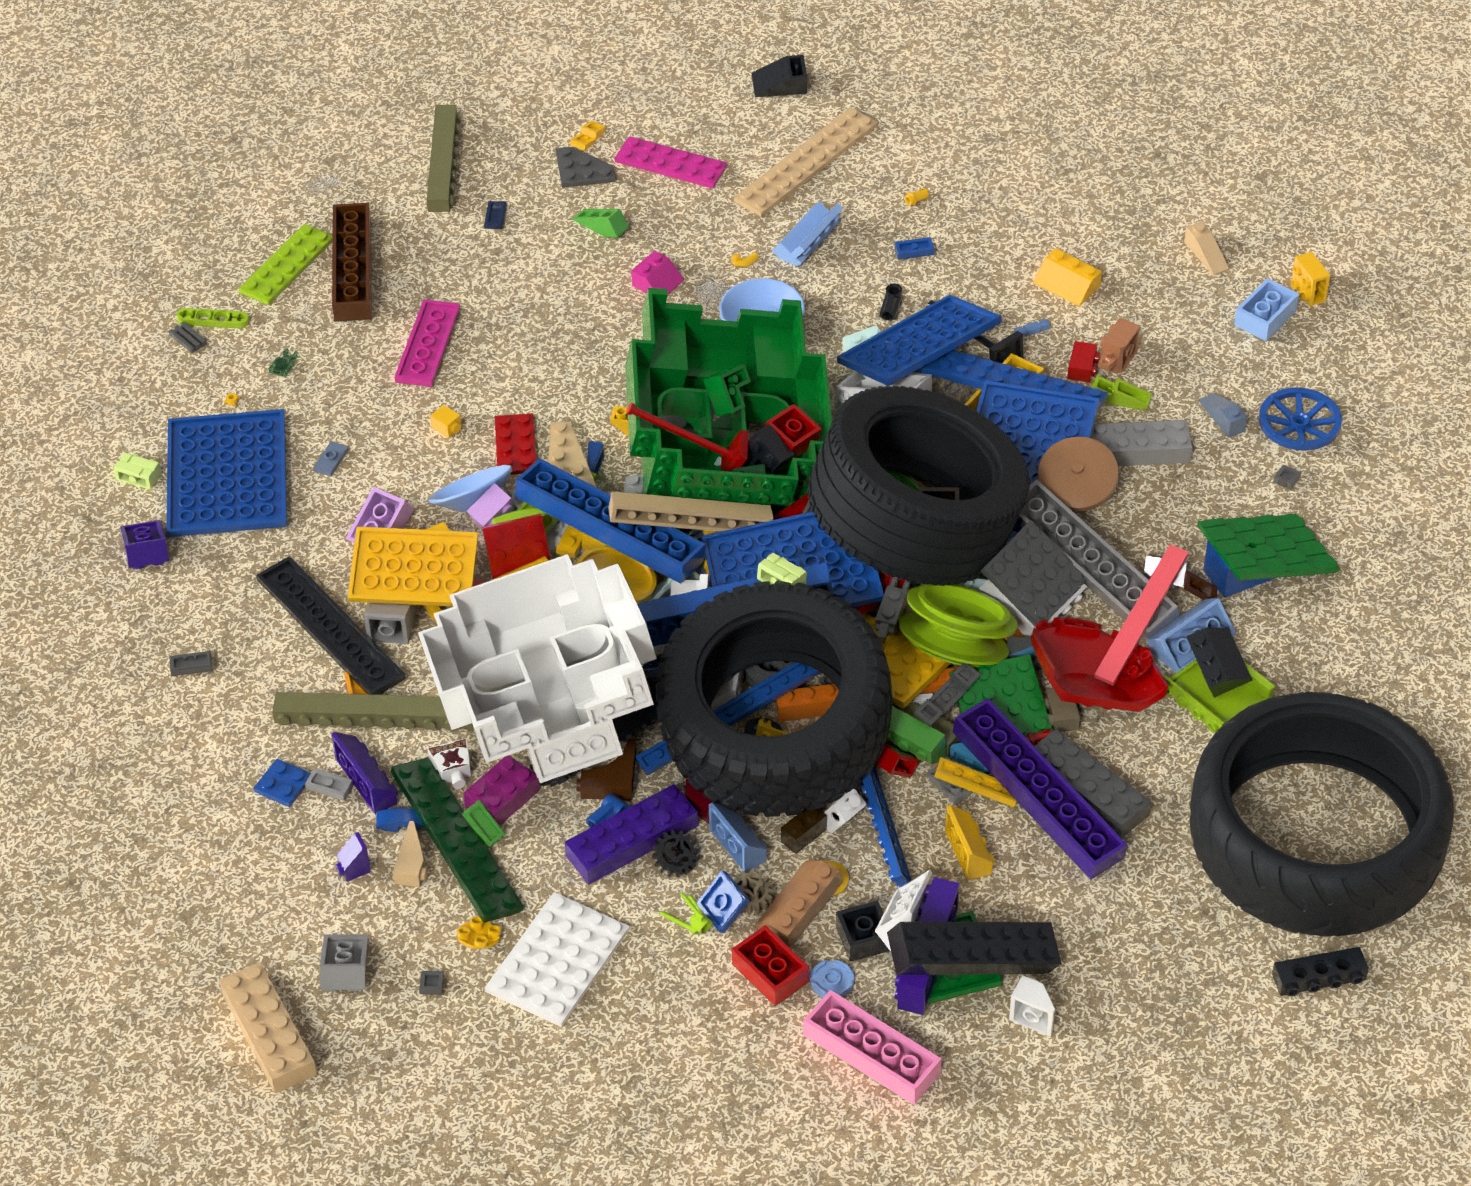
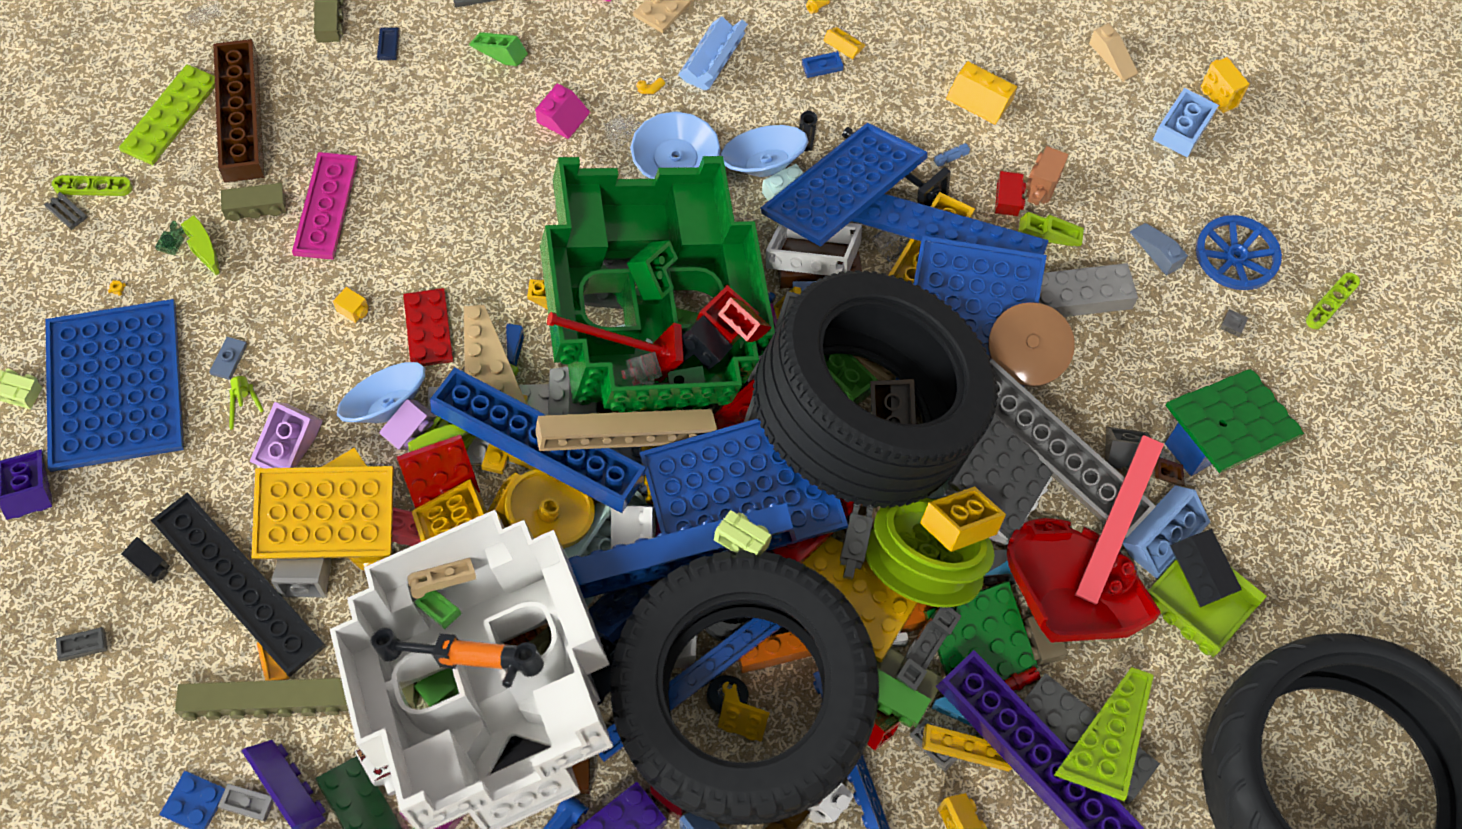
camera: 10 degrees left, 15 degrees up
(251, 602) = (145, 560): none -> black slope
(311, 367) = (200, 243): none -> lime slope
(340, 482) = (240, 389): none -> lime plant
(361, 336) = (253, 201): none -> olive brick
(510, 636) = (438, 608): none -> bright green tile
(515, 613) = (440, 577): none -> tan plate
(522, 651) = (452, 652): none -> black piece
(710, 461) = (643, 369): none -> clear brick
(804, 428) = (744, 320): none -> red brick
(847, 314) = (764, 150): none -> light blue dish
(938, 230) = (843, 42): none -> yellow slope
(988, 592) = (962, 518): none -> yellow brick
(1105, 776) = (1109, 746): none -> lime wing
(1391, 466) = (1332, 301): none -> lime beam

